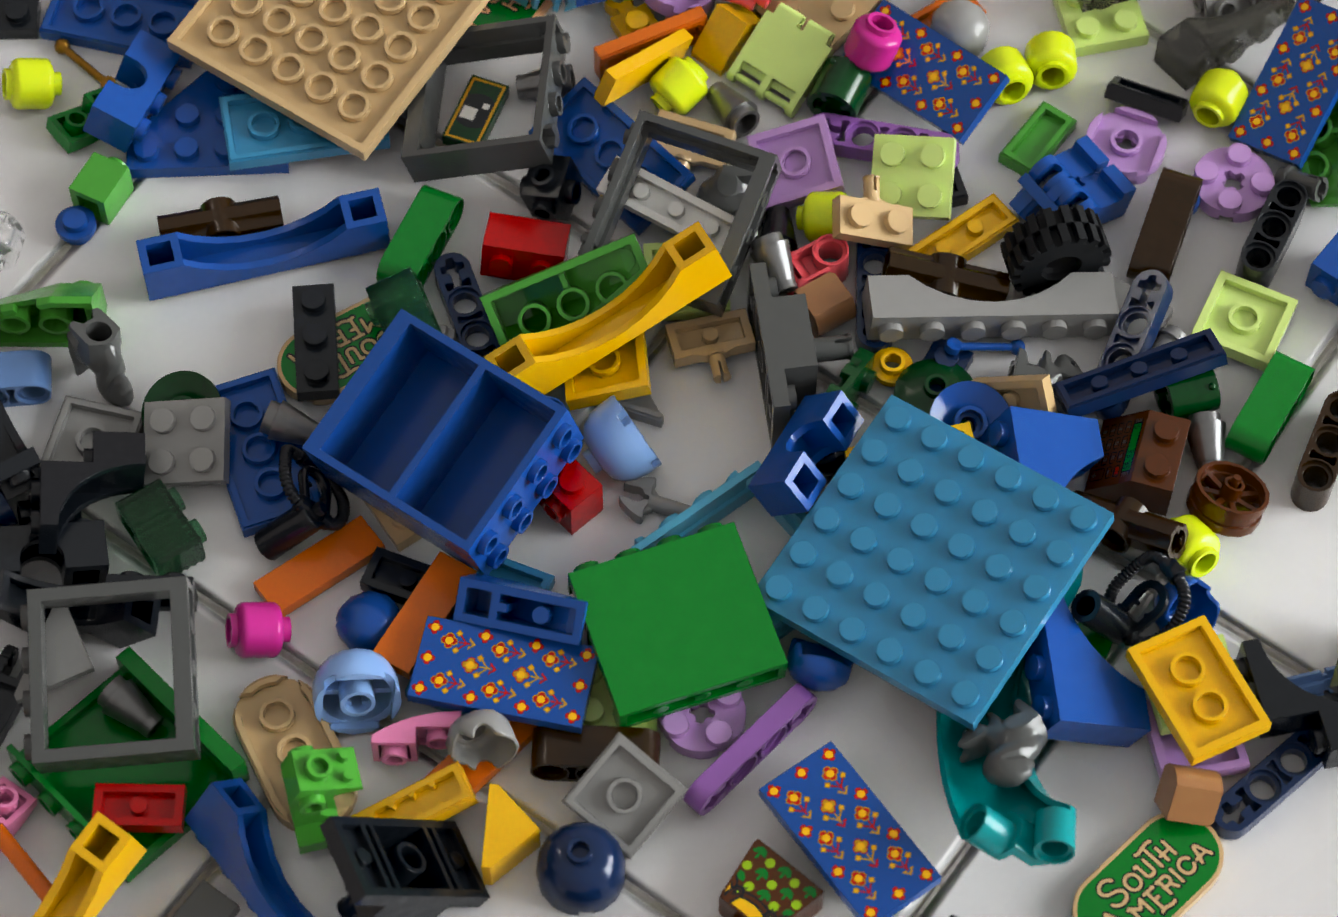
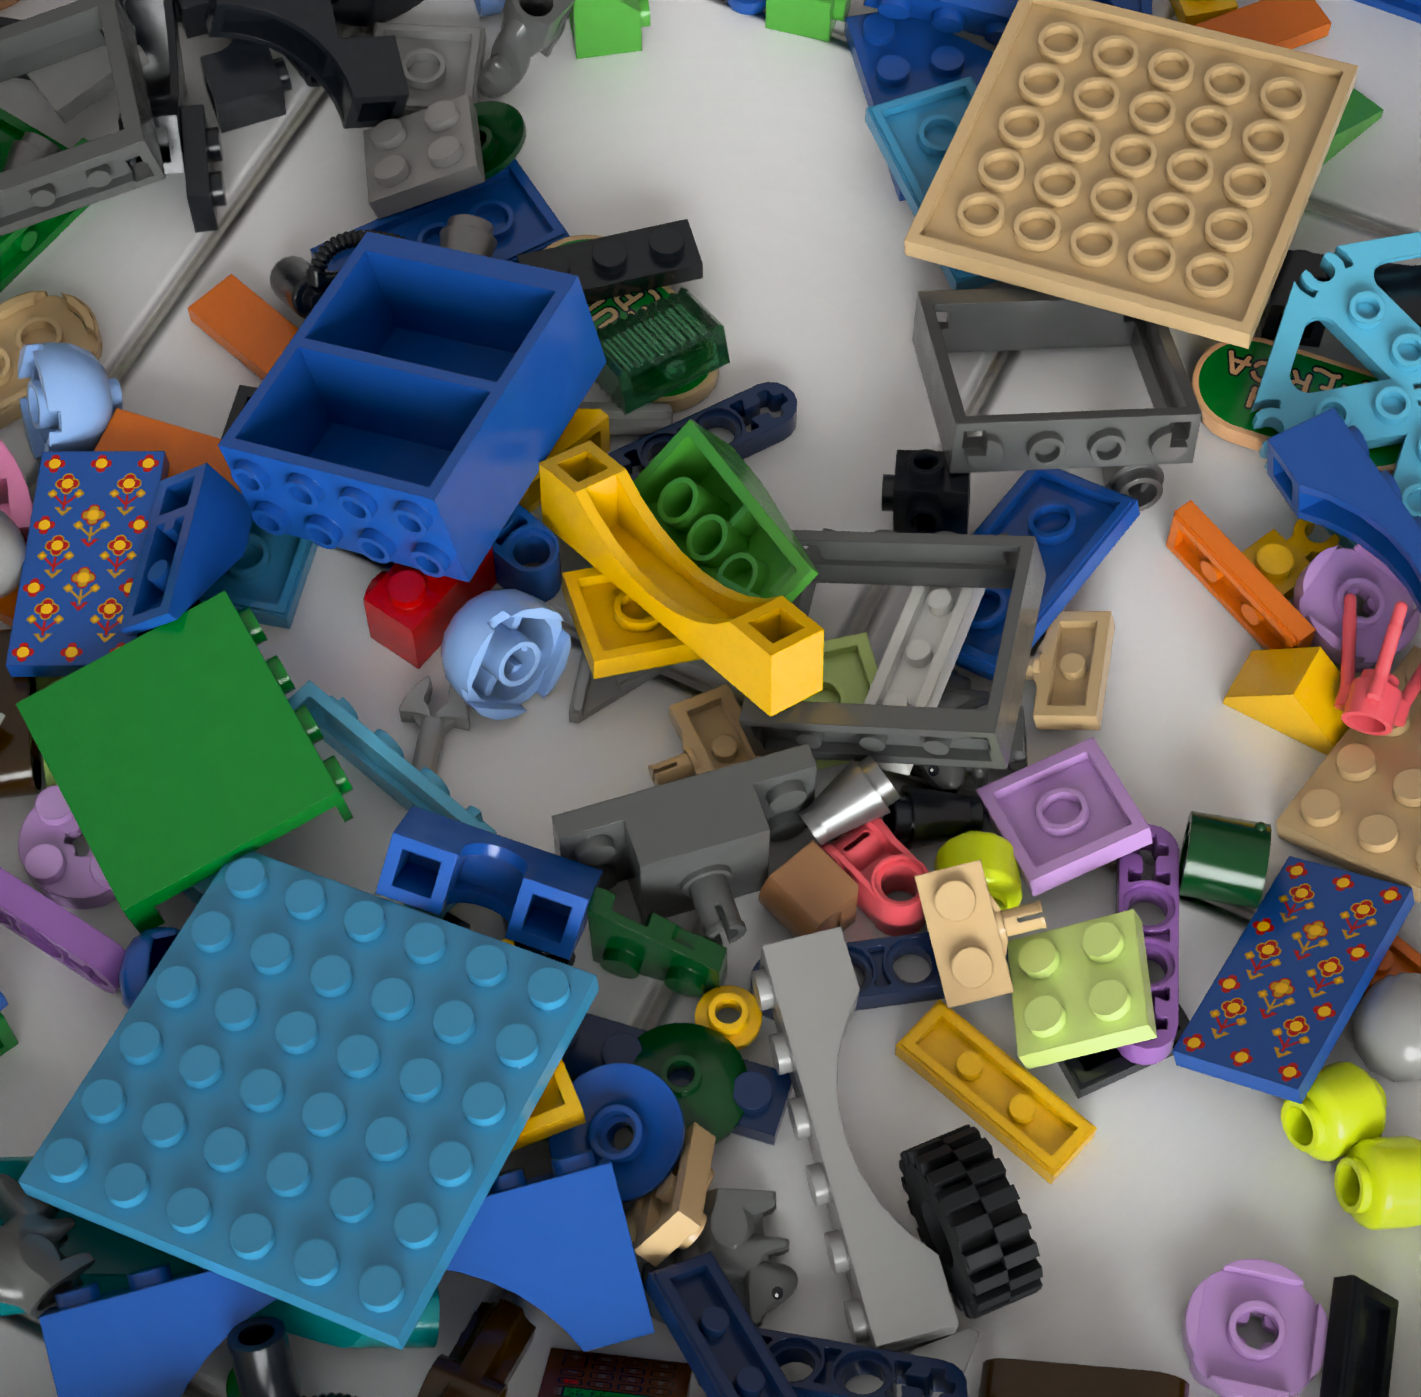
camera: 80 degrees right, 0 degrees up
(161, 529) = (293, 159): clear green brick -> none
(189, 263) = (788, 245): blue arch -> none
(225, 218) = (783, 132): dark brown piece -> none
(257, 629) = (155, 287): dark pink head -> none
(365, 619) = (190, 402): blue hair -> none
(422, 234) = (812, 358): green beam -> none
(476, 111) = (1047, 387): tile -> none
(522, 246) = (815, 471): red brick -> none
(640, 67) = (1174, 570): yellow tile -> none
(678, 85) = (1169, 635): neon yellow head -> none
(733, 109) = (1149, 720): flat silver cone -> none
(783, 57) = (1266, 768): yellowish green plate -> none
(873, 42) = (1307, 876): dark pink head -> none
(948, 274) = (894, 1060): dark brown piece -> none
(954, 346) = (768, 1096): blue hinge -> none
(1037, 138) = (1229, 1190): bright green tile -> none
(1074, 179) = (1097, 1222): blue hips -> none

